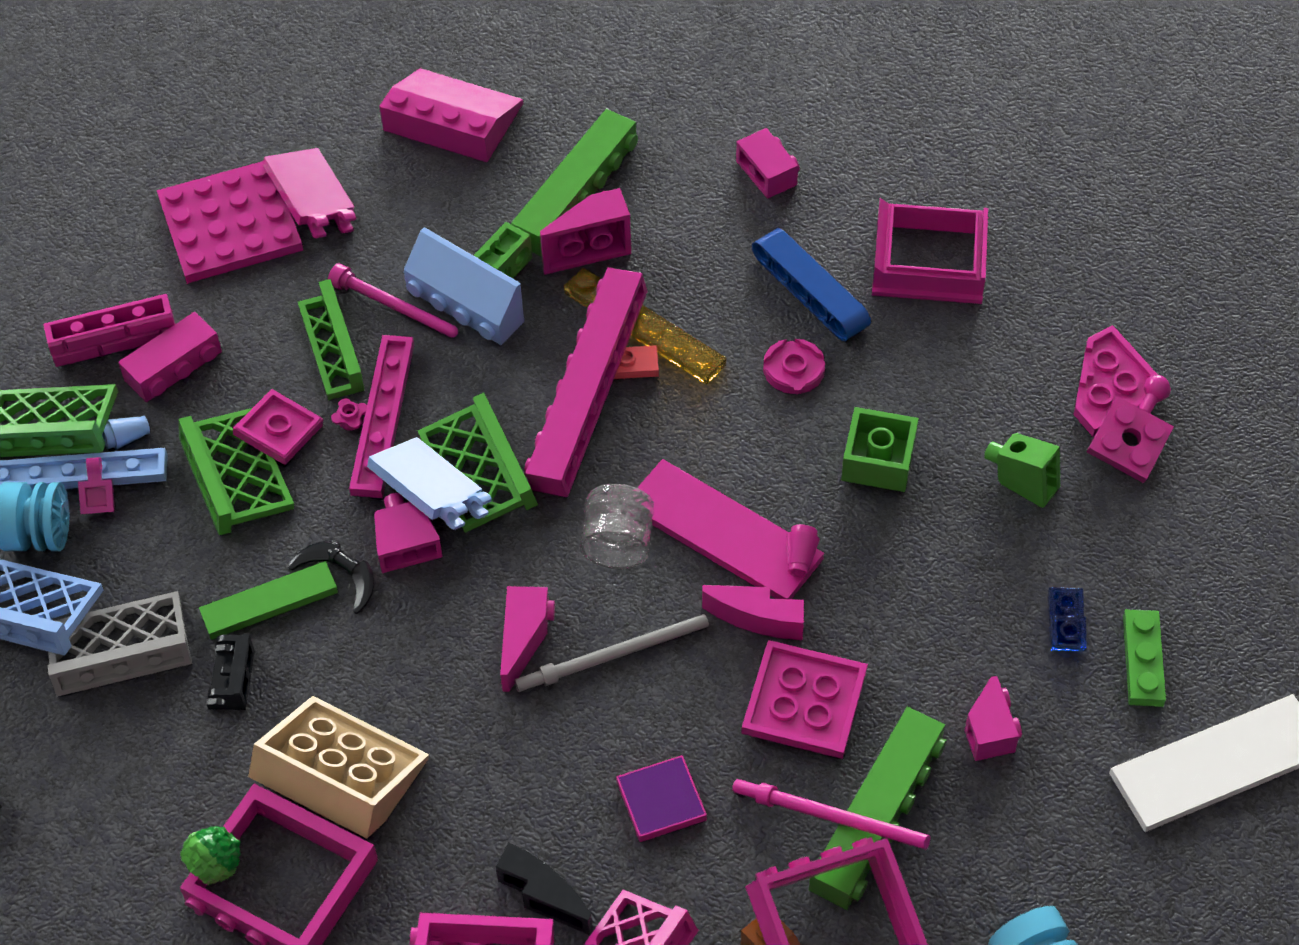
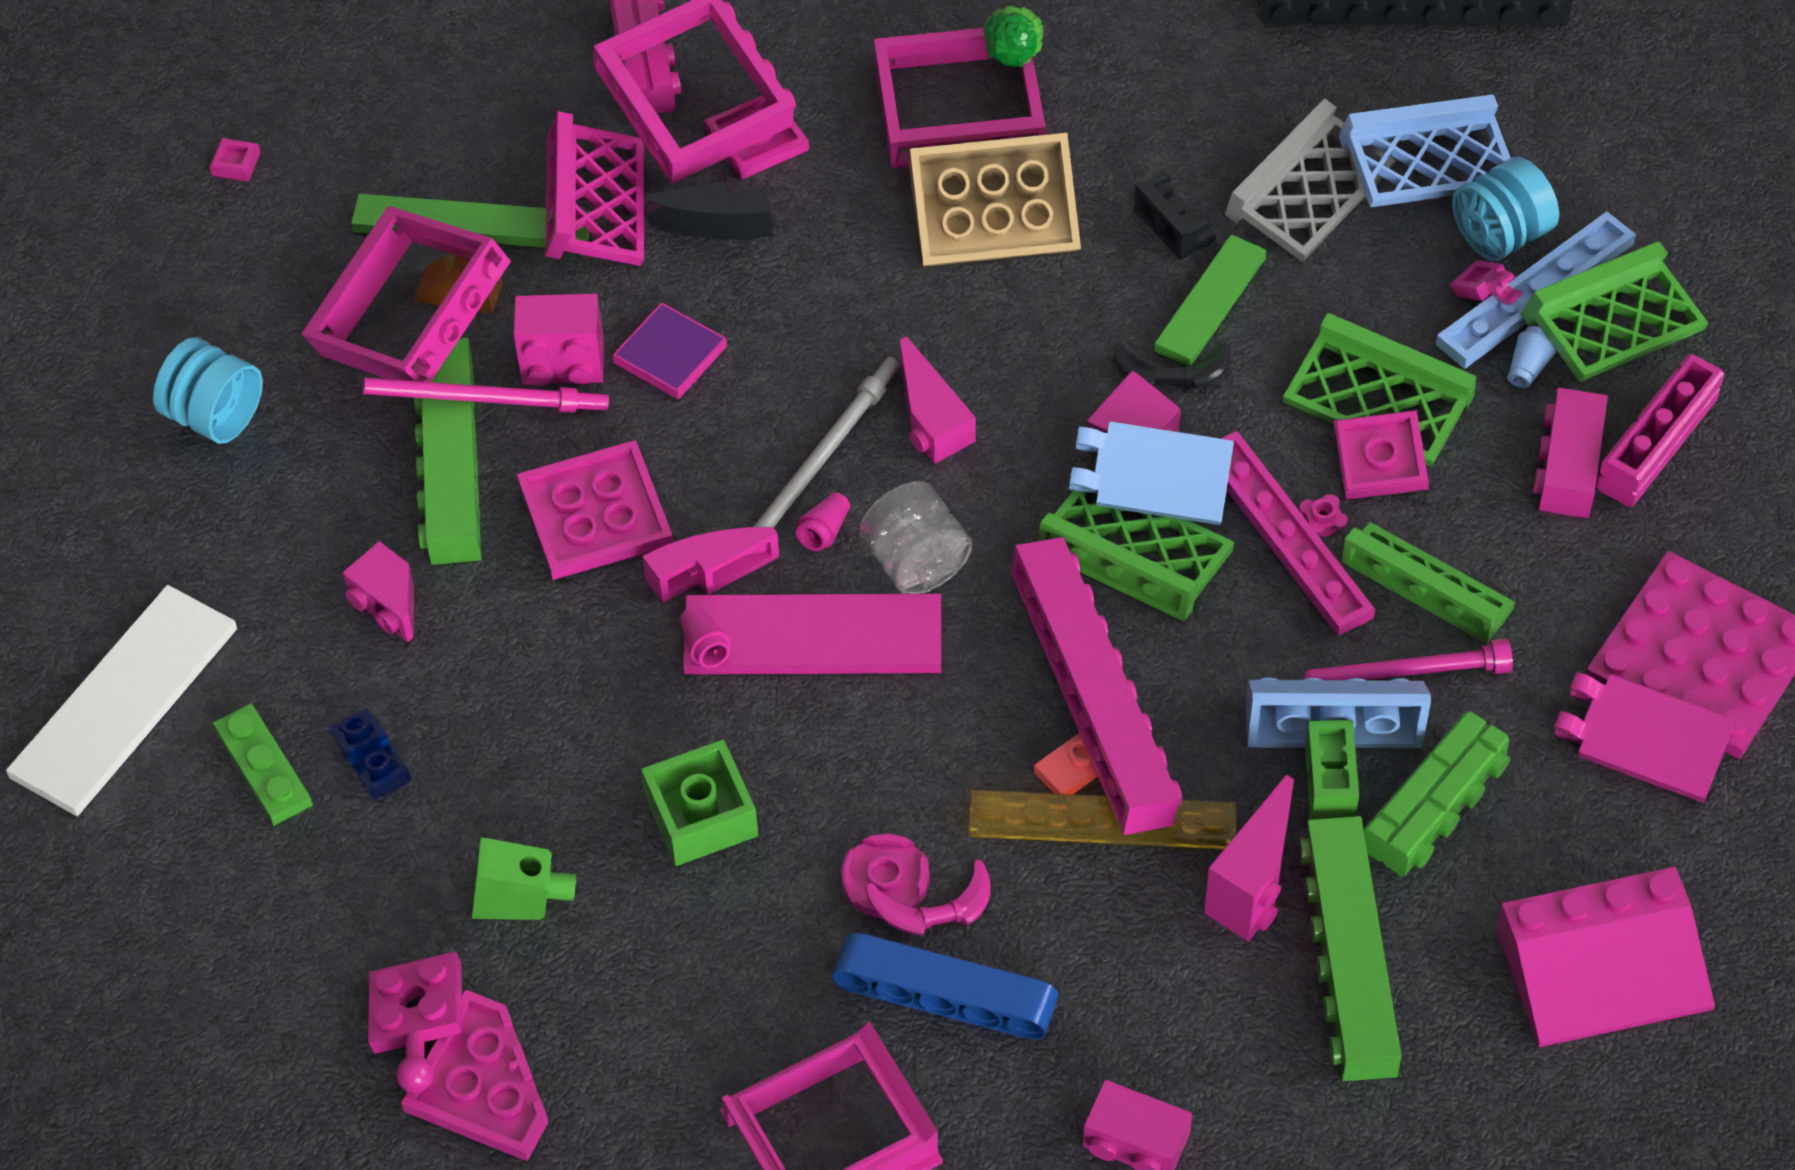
camera: 145 degrees right, 0 degrees up
(458, 223) = (1436, 793): none -> bright green brick
(658, 595) = (823, 522): none -> dark pink cone
(744, 828) = (559, 339): none -> dark pink brick
(798, 325) = (915, 921): none -> dark pink piece

